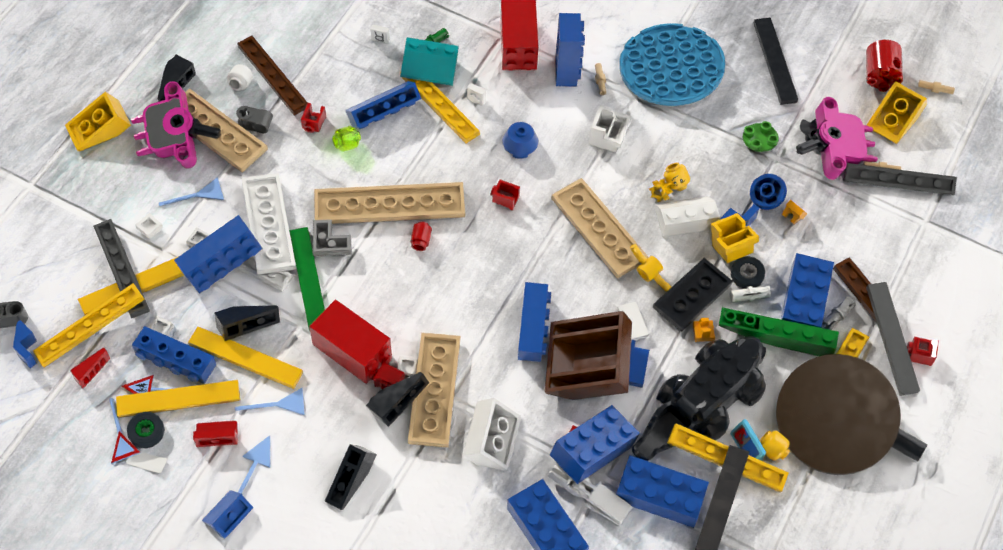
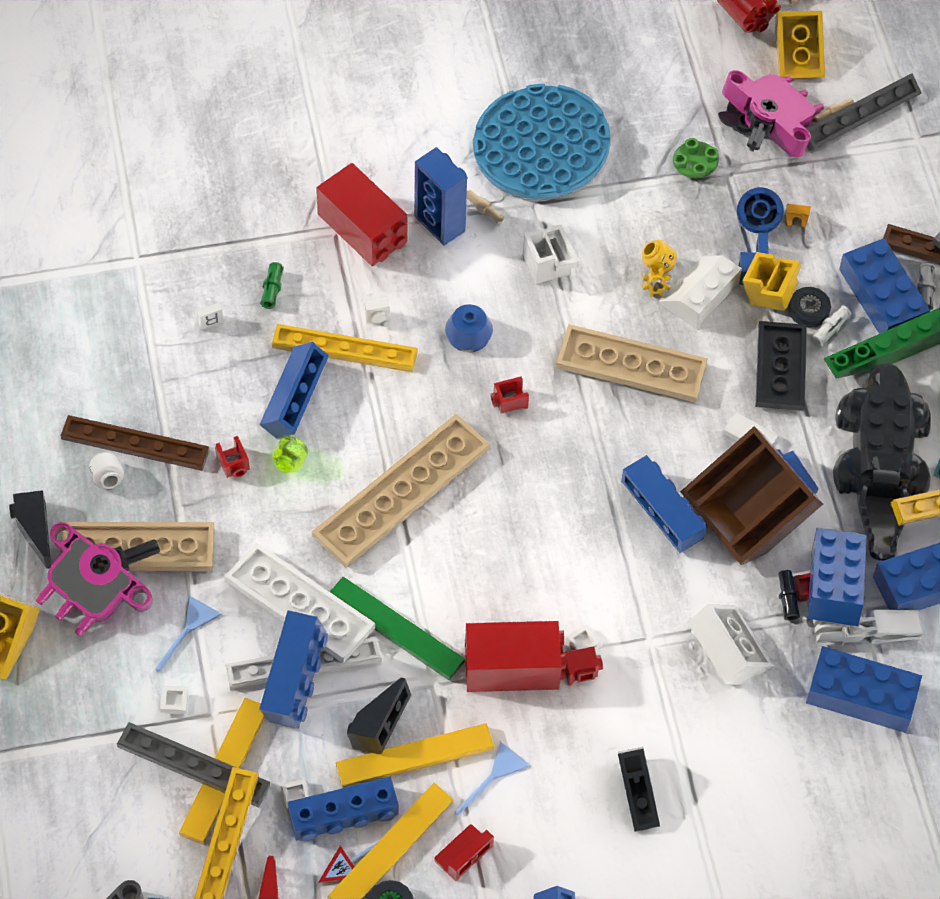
camera: 40 degrees left, 0 degrees up
(256, 120) = (170, 503): dark grey piece -> none
(258, 454) = (526, 838): light blue piece -> none
(327, 245) = (381, 579): light grey brick -> none
(396, 398) = (608, 682): black slope -> none
(420, 236) = (468, 500): red brick -> none
(429, 61) = (296, 309): teal slope -> none
(434, 405) = (633, 642): tan plate -> none
(561, 430) = (788, 595): none -> black axle
(649, 268) = (720, 369): yellow piece -> none
(703, 330) = (822, 394): light orange tile -> none
(775, 61) = (635, 68): black tile -> none

